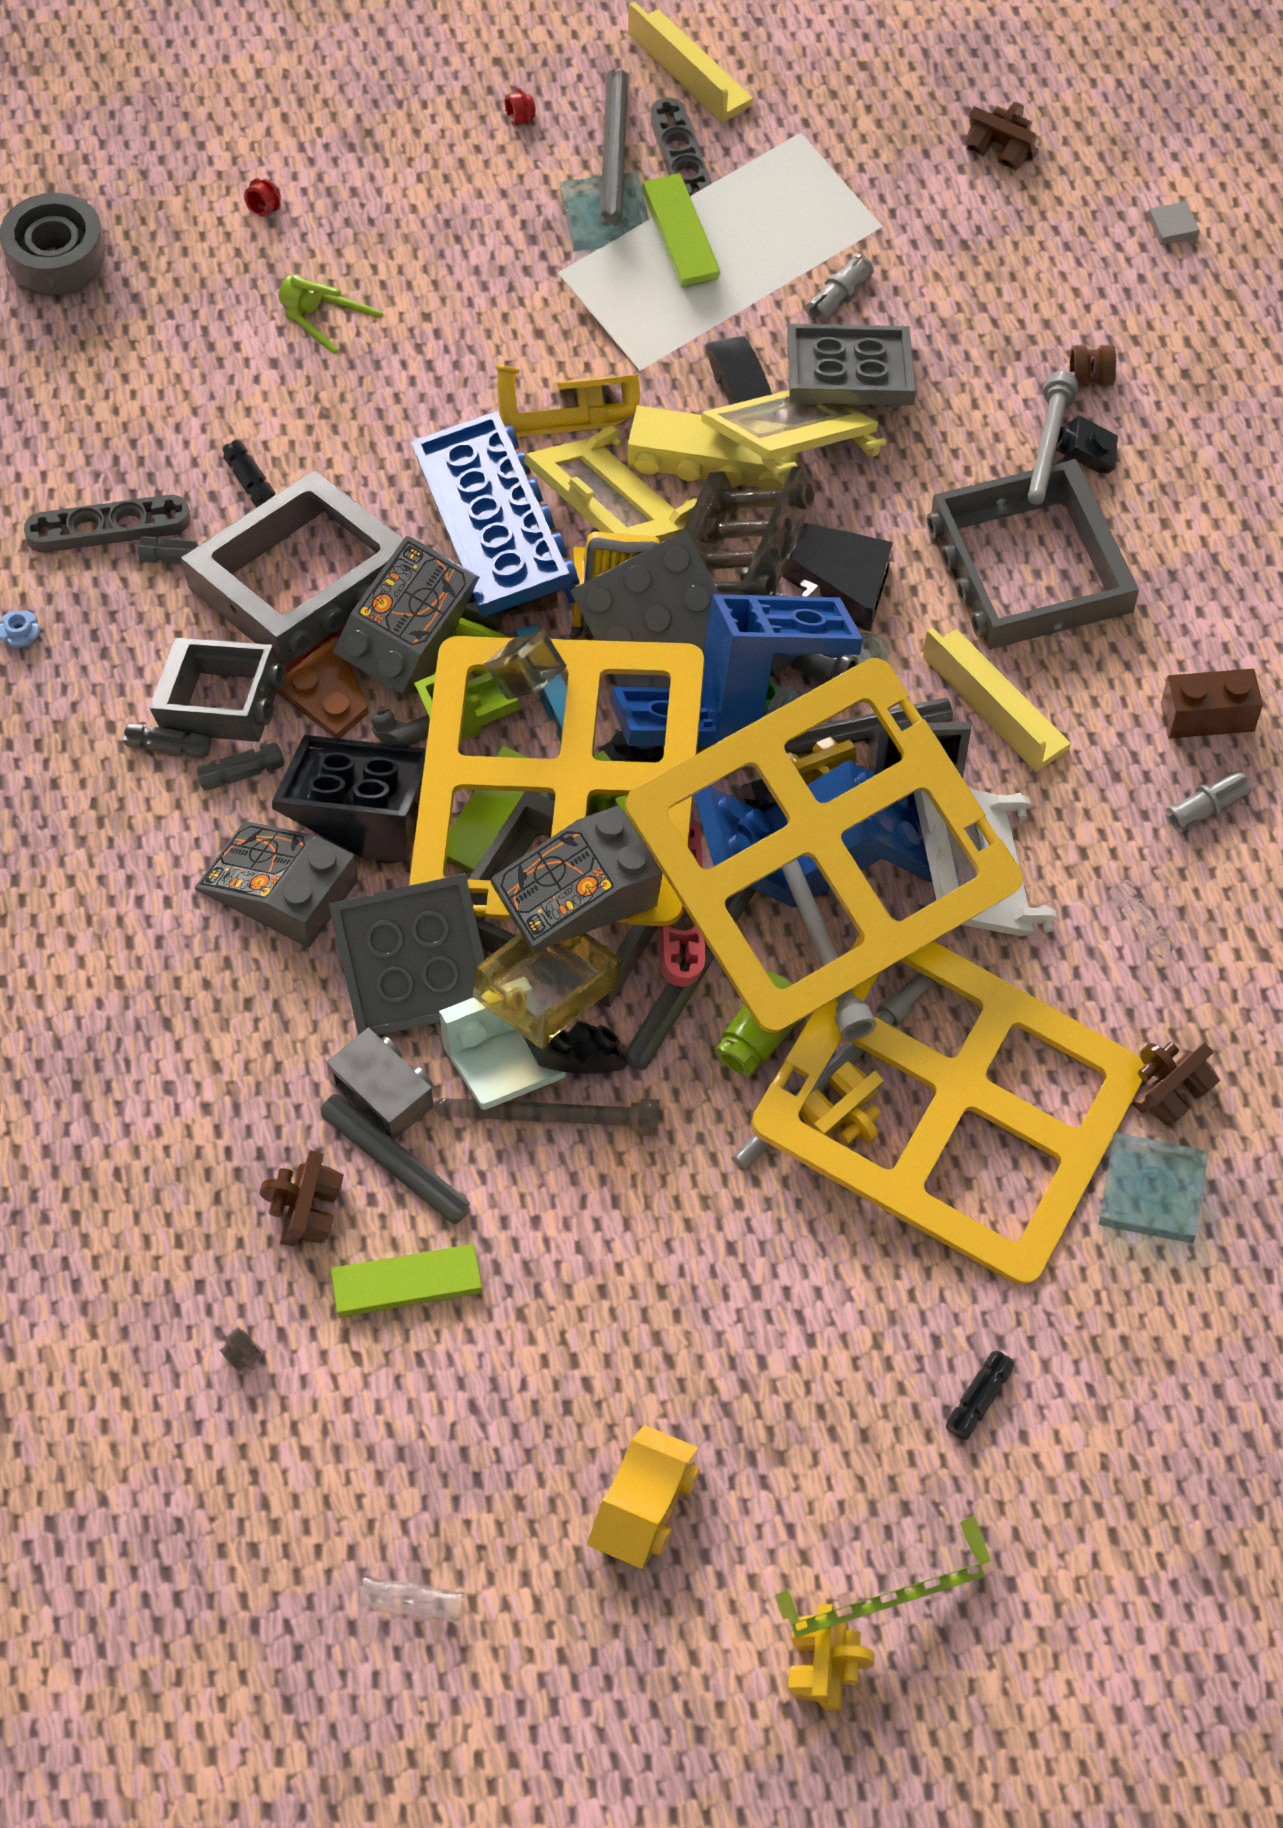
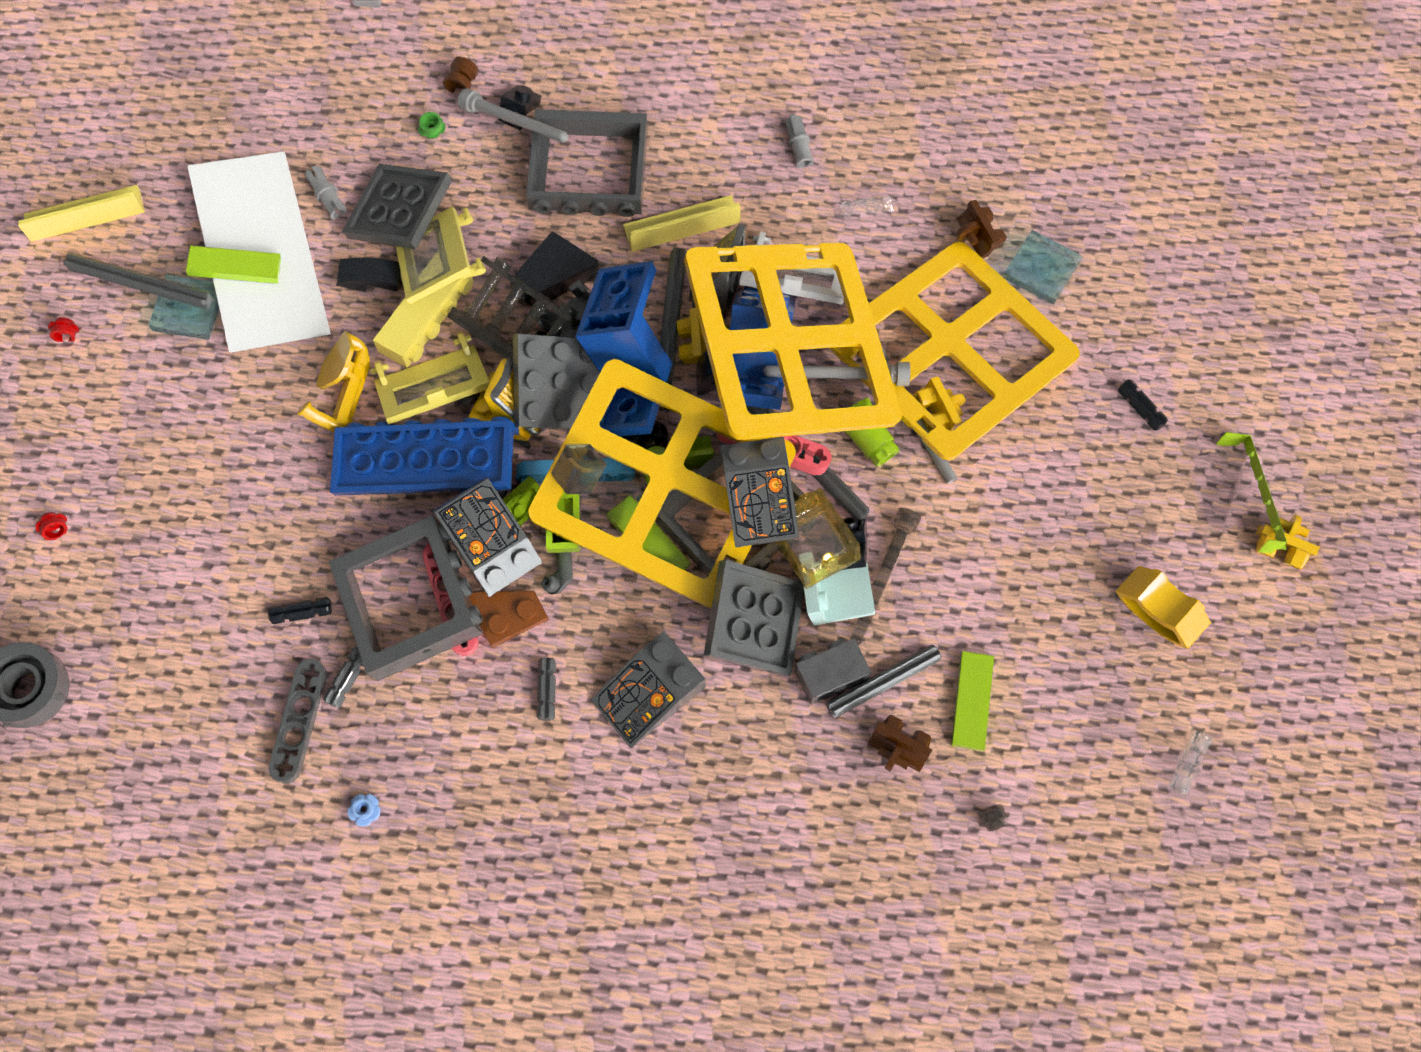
camera: 70 degrees left, 10 degrees up
(166, 740) = (505, 732): dark grey axle -> none
(197, 656) = (446, 695): dark grey window -> none
(305, 296) = (160, 525): lime plant -> none
(355, 794) = (603, 617): black slope -> none
(678, 159) = (163, 250): dark grey beam -> none
(1002, 354) = (431, 119): none -> bright green plate
(1006, 129) = (248, 50): reddish brown hips -> none
(1211, 703) = (737, 110): reddish brown brick -> none

